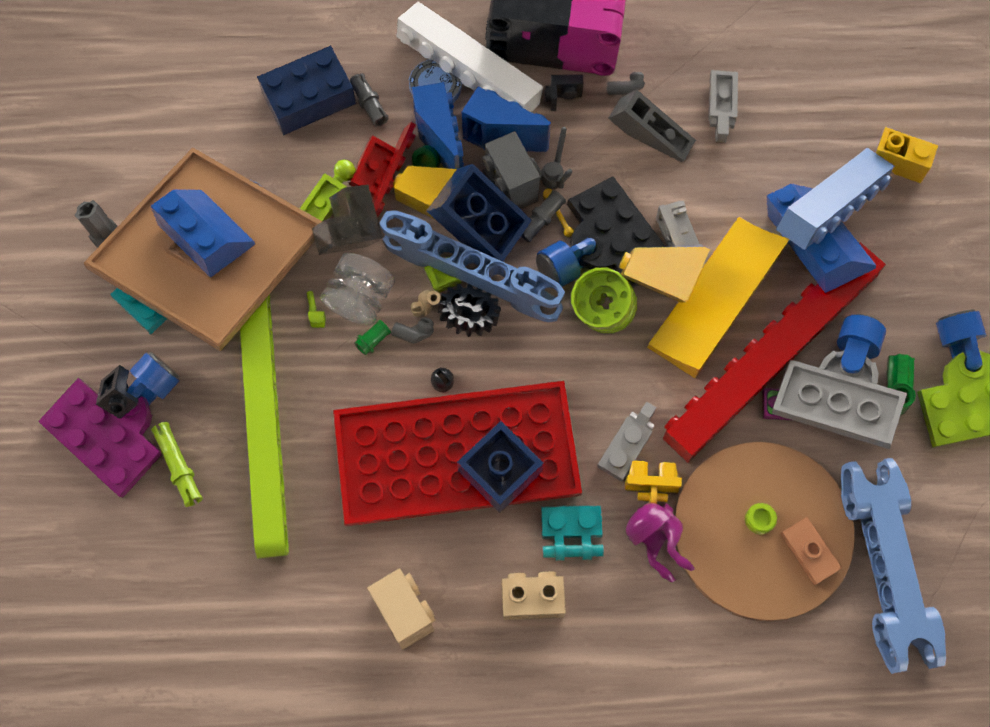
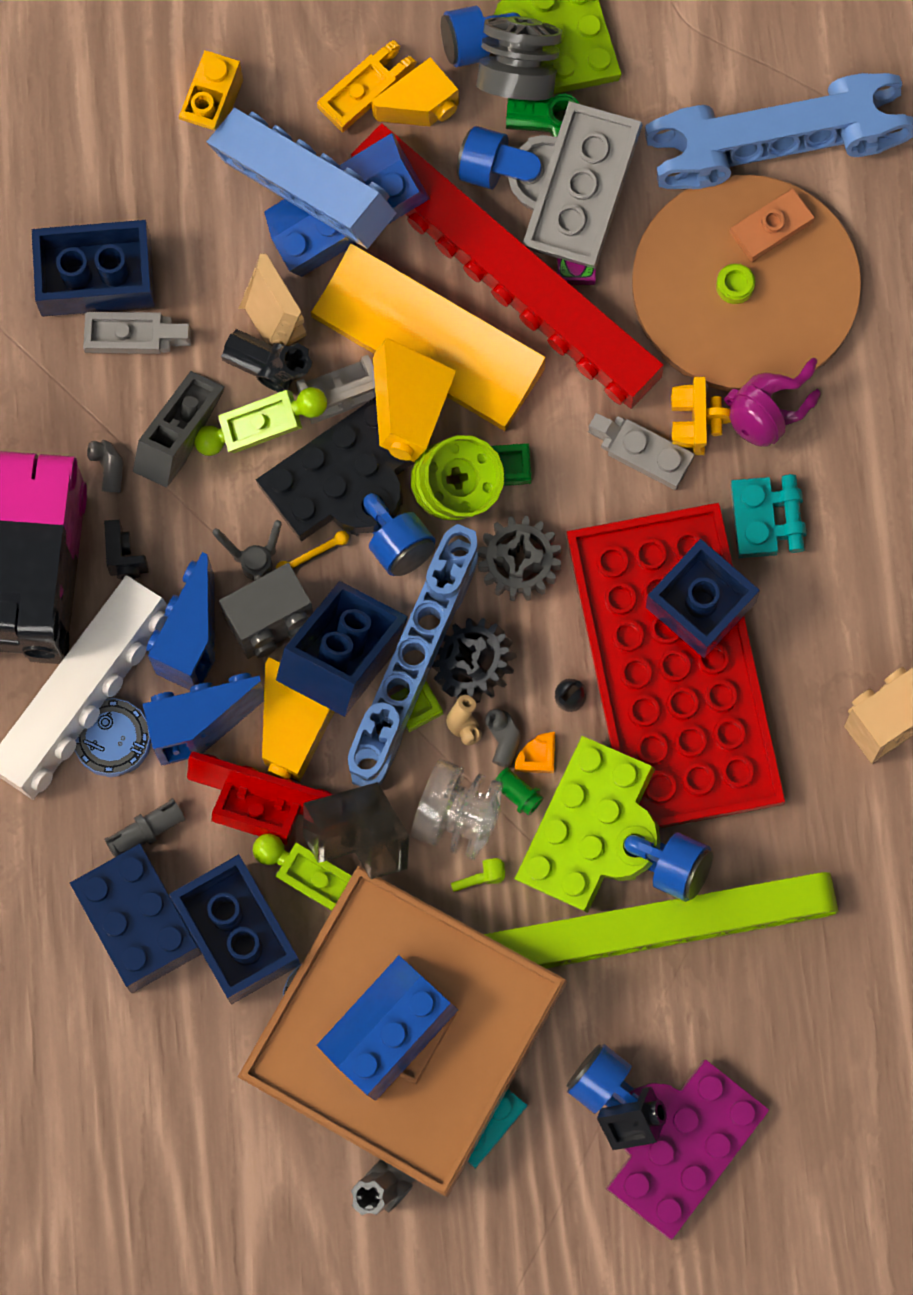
camera: 90 degrees left, 5 degrees up
(181, 474) = (718, 1037): lime pin -> none
(290, 146) = (235, 929): none -> dark blue brick
(330, 390) = (603, 832): none -> lime plate
(399, 354) = (537, 755): none -> light orange tile
(426, 157) = (242, 738): dark green tile -> none
(533, 596) = (858, 558): tan brick -> none
(535, 343) = (534, 561): none -> dark grey gear
(543, 214) = (317, 568): dark grey pin -> none
(620, 348) = (516, 463): none -> green tile
(654, 178) = (260, 421): none -> lime plate
(699, 188) = (272, 365): none -> black piece
(742, 189) = (272, 305): none -> tan slope
(769, 74) = (93, 268): none -> dark blue brick
(910, 295) = (418, 98): none -> yellow slope
(918, 261) = (354, 93): none -> yellow hinge
(941, 358) = (518, 67): none -> dark grey wheel

